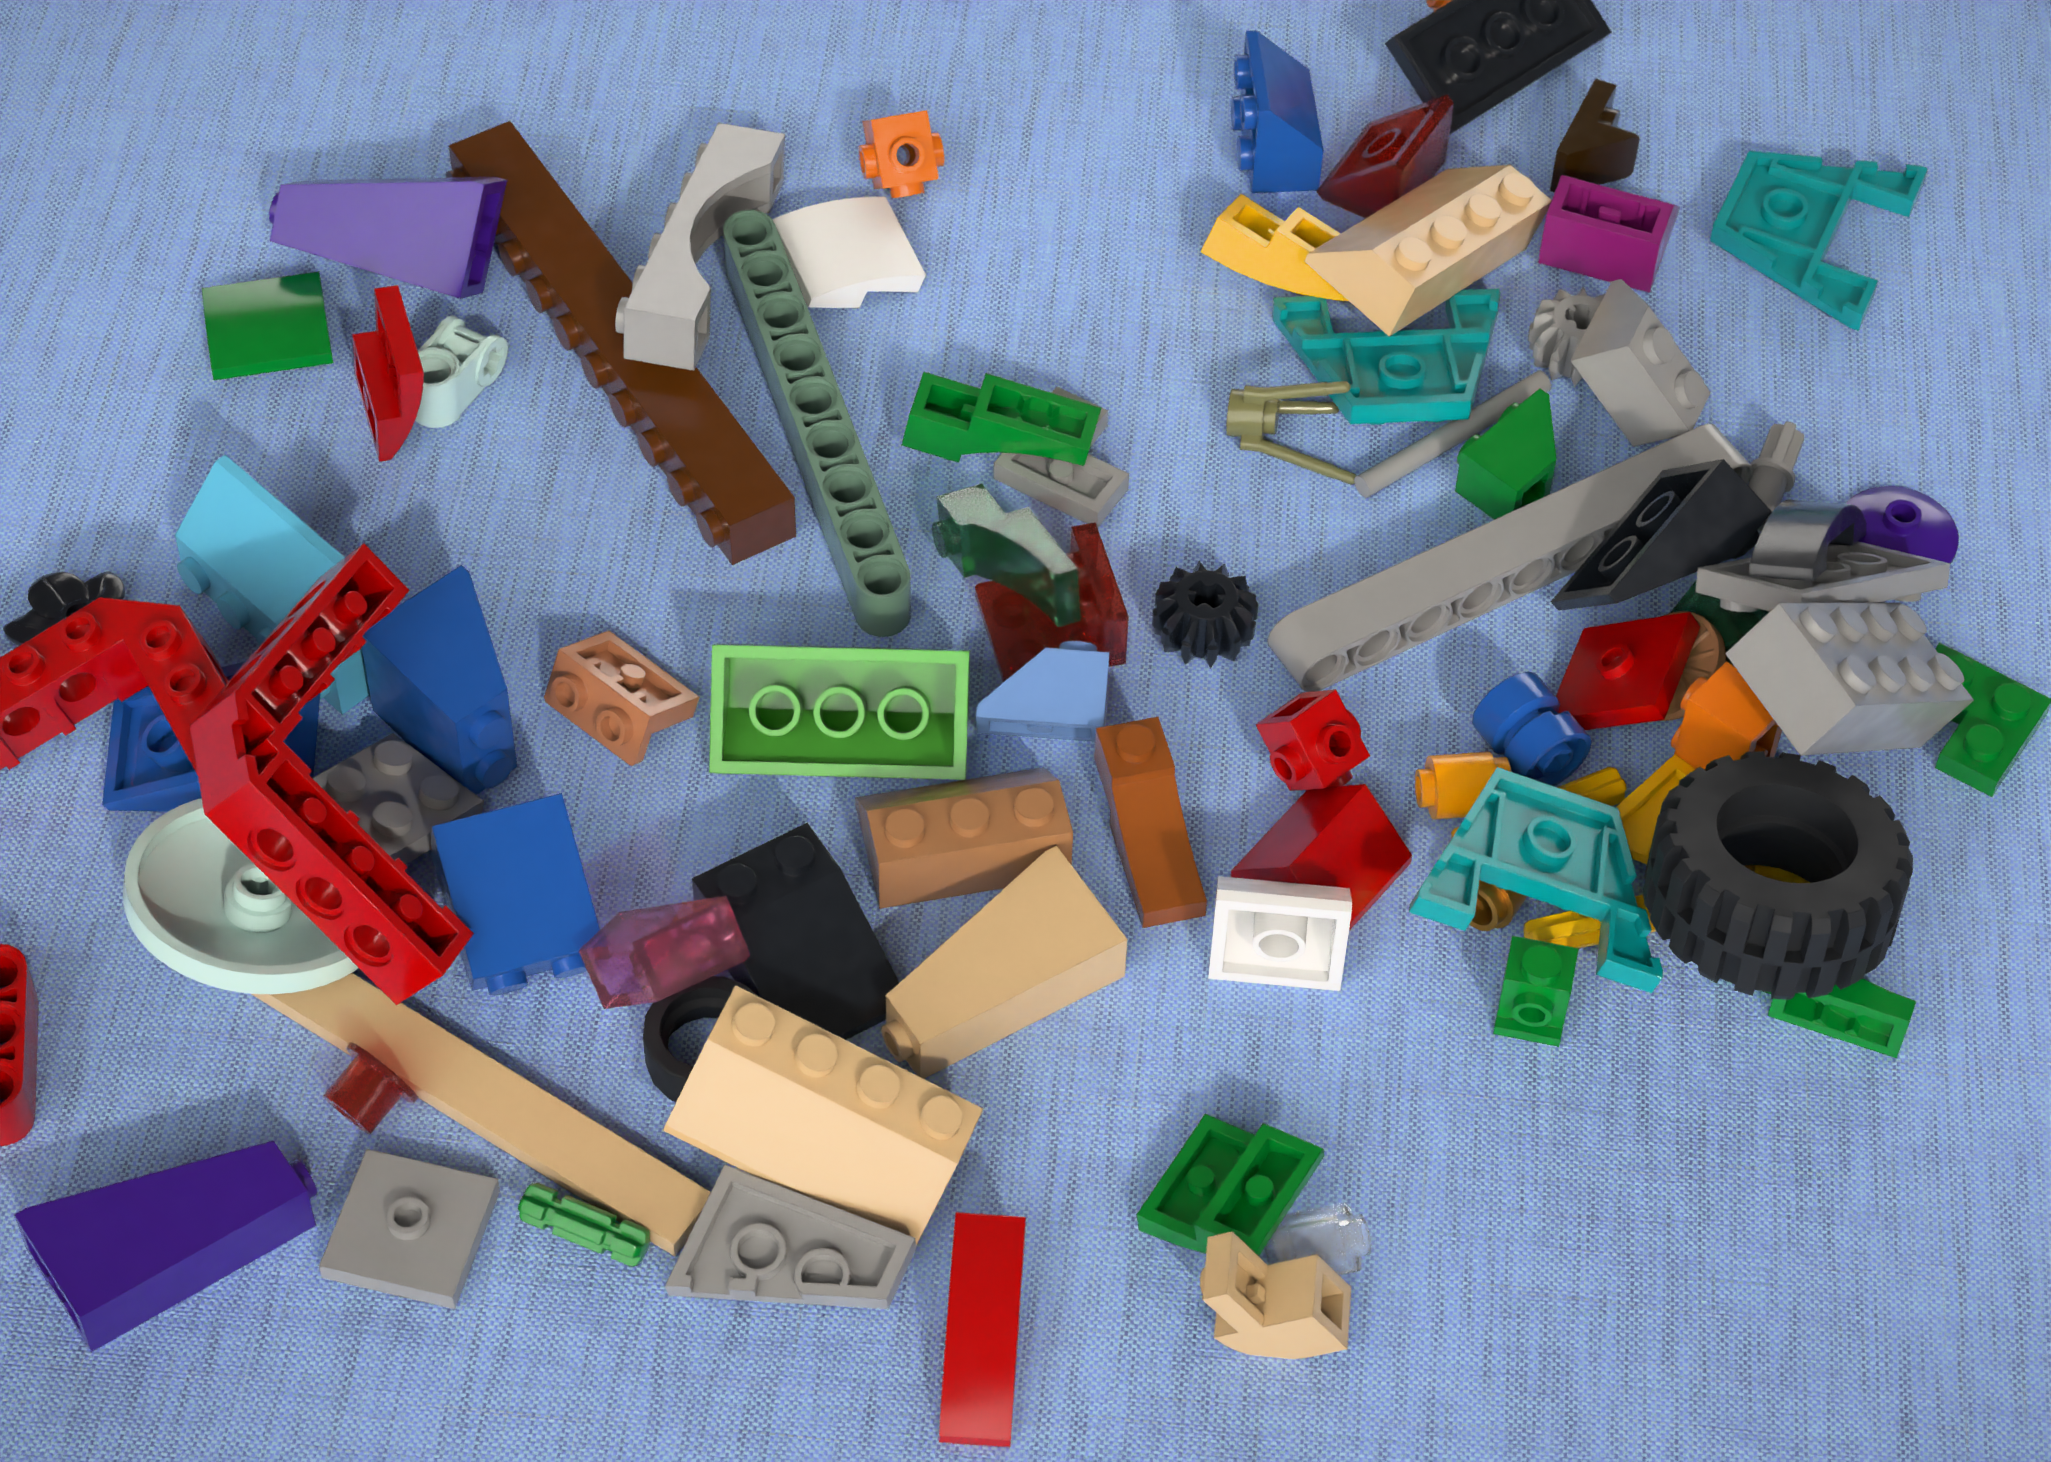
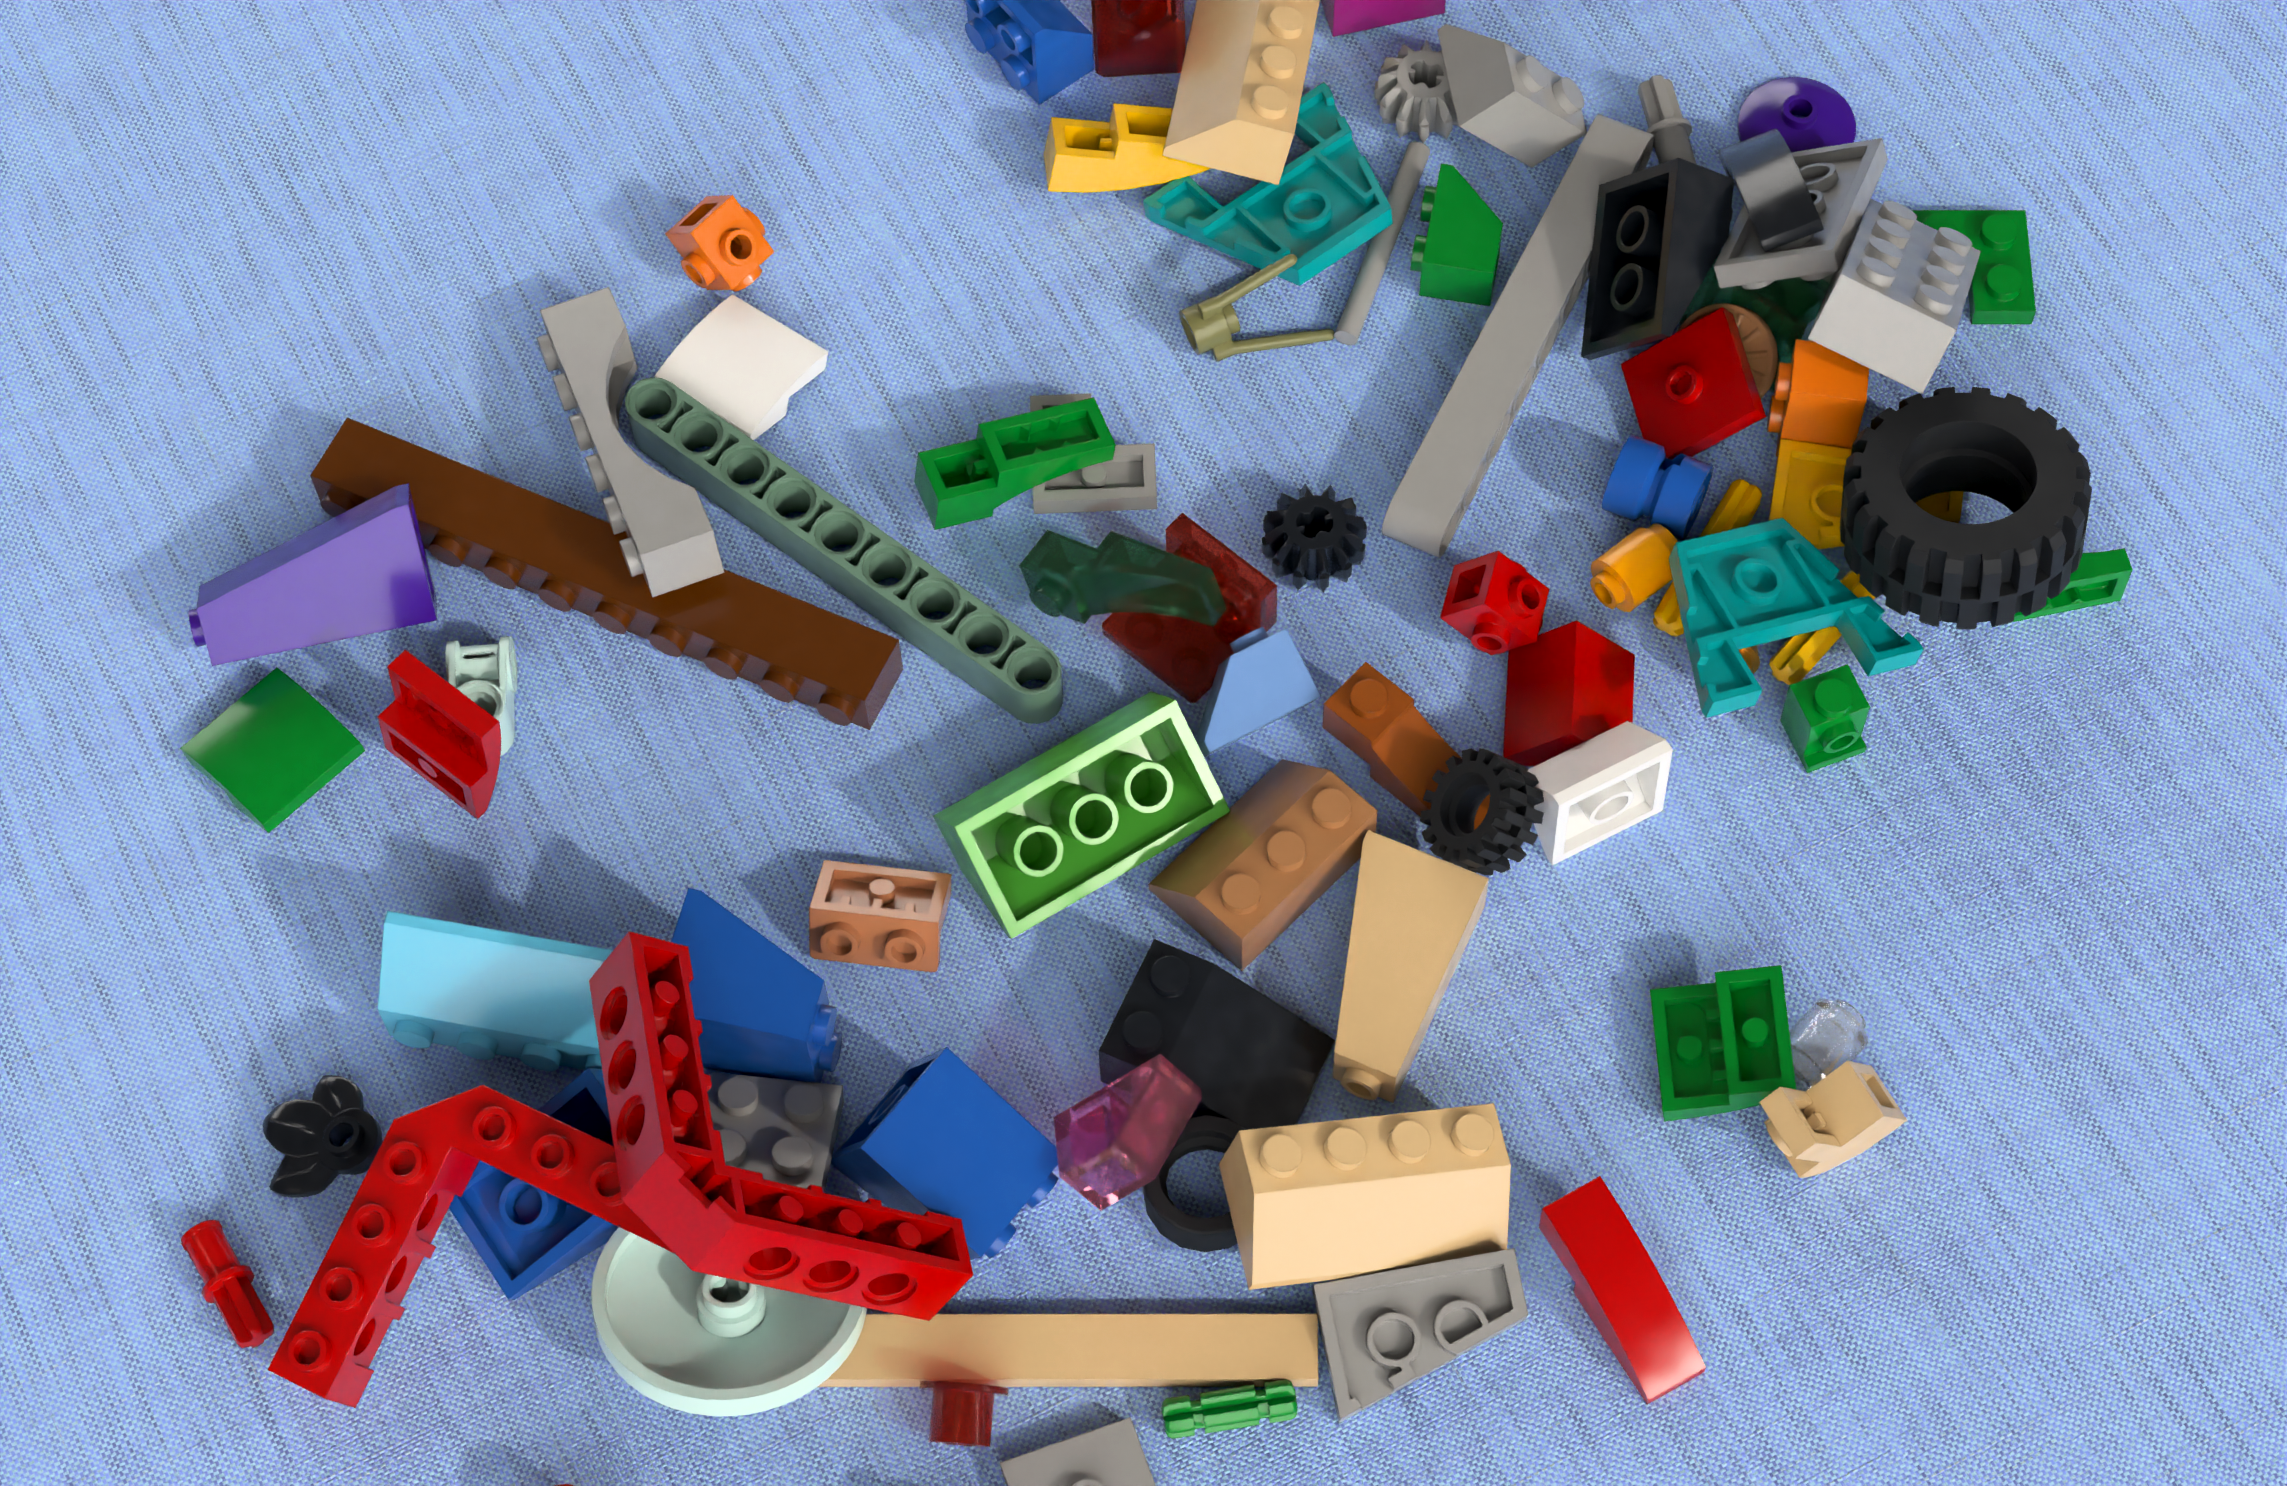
camera: 30 degrees left, 10 degrees up
(1158, 880) = (1506, 821): none -> black tyre

